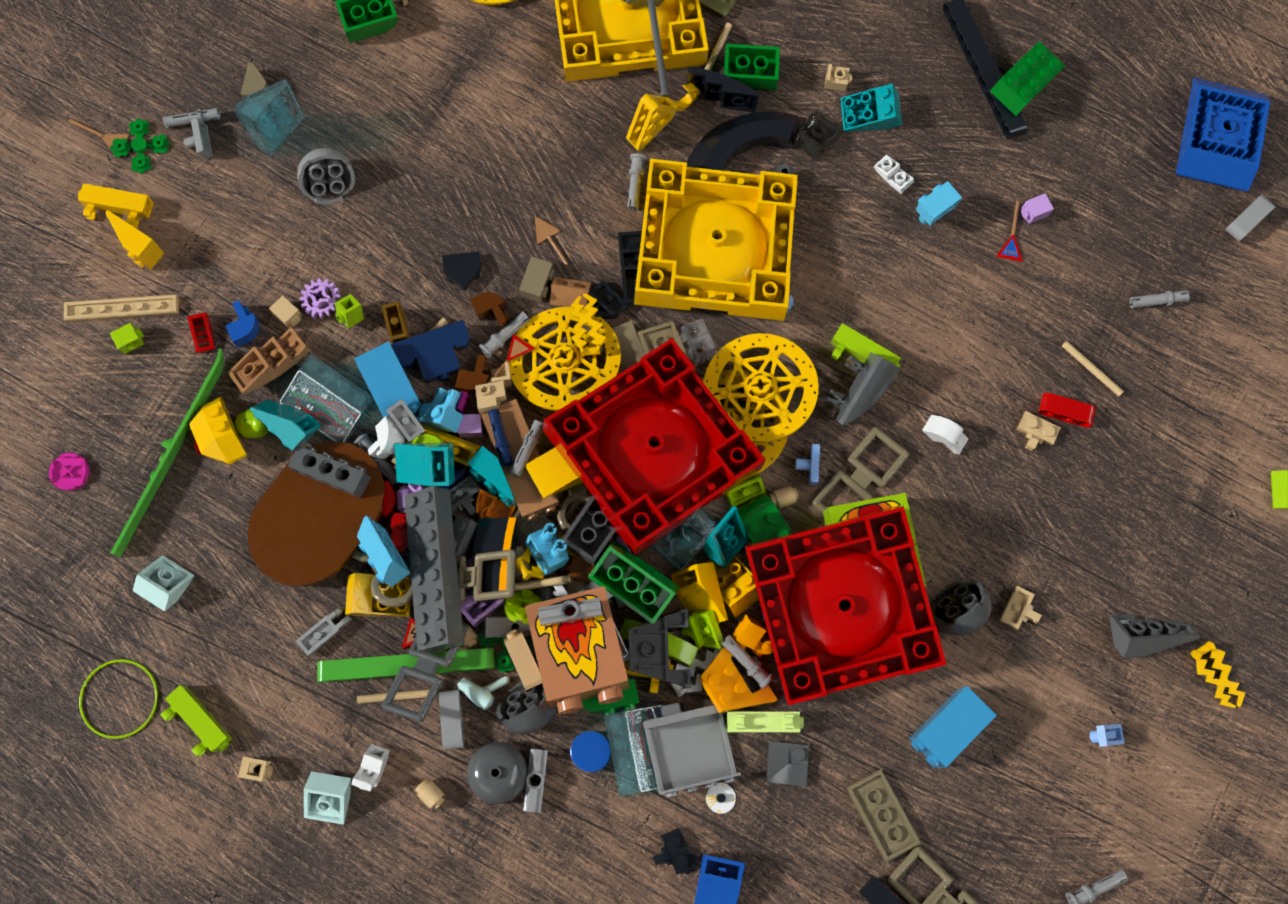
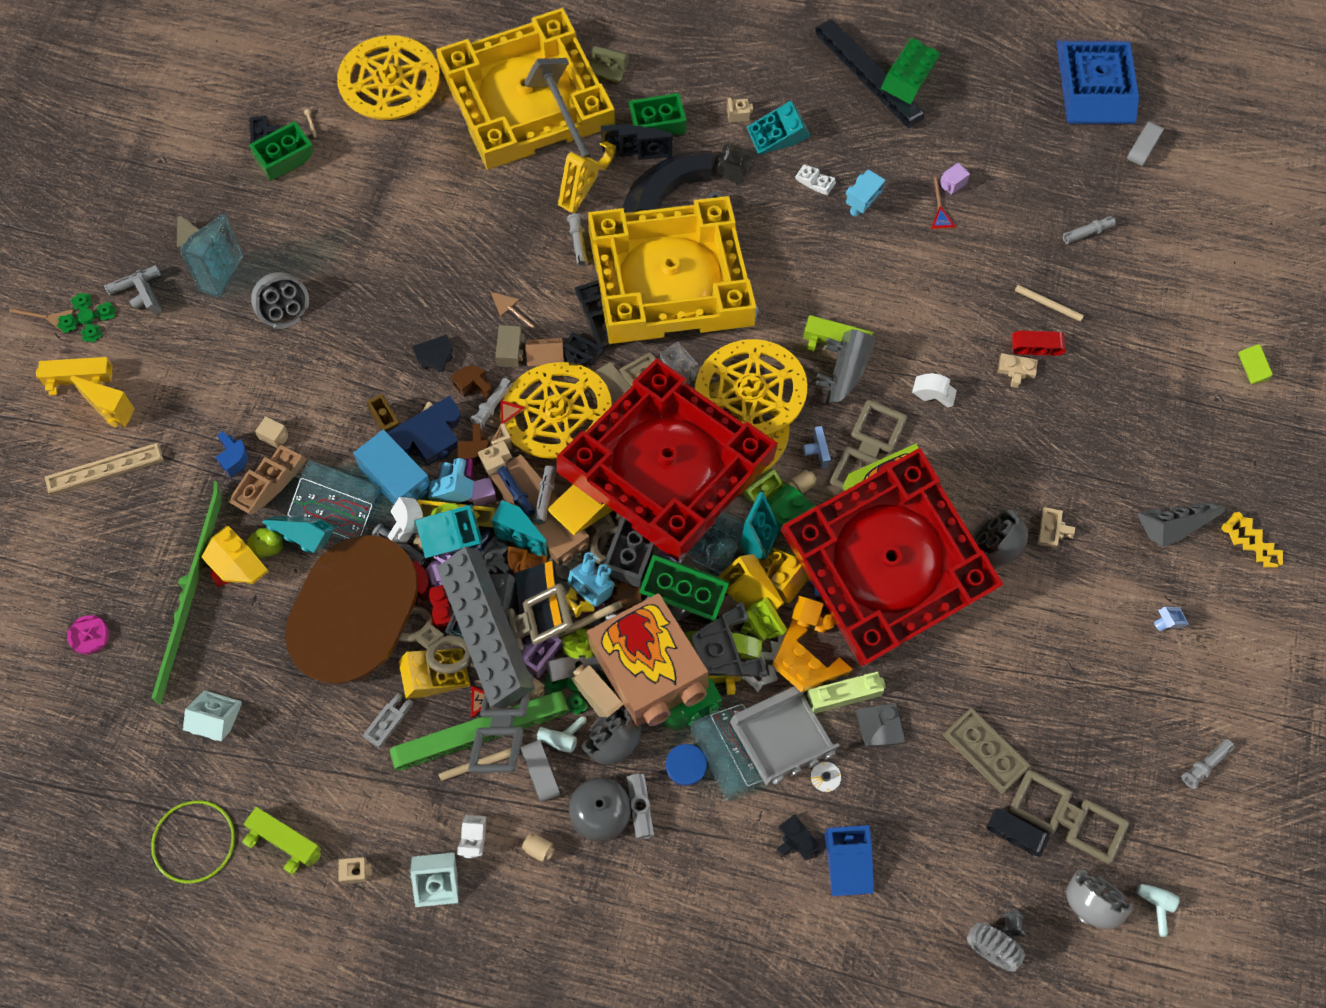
camera: 15 degrees left, 10 degrees down
(127, 338) = (118, 493): lime brick -> none
(199, 317) = (188, 457): red slope -> none
(317, 291) = (300, 410): lavender gear -> none
(349, 311) = (335, 415): lime brick -> none
(354, 484) = (384, 570): dark grey brick -> none
(381, 552) = (428, 623): medium azure slope -> none
(405, 420) = (419, 495): light grey plate -> none
(556, 613) = (645, 617): light grey piece -> none
(586, 319) = (584, 382): yellow piece -> none
(666, 710) = (747, 703): black beam -> none
(718, 46) = (622, 102): tan piece -> none
(752, 667) = (820, 644): light grey pin -> none
(952, 727) = (1025, 648): dark azure brick -> none

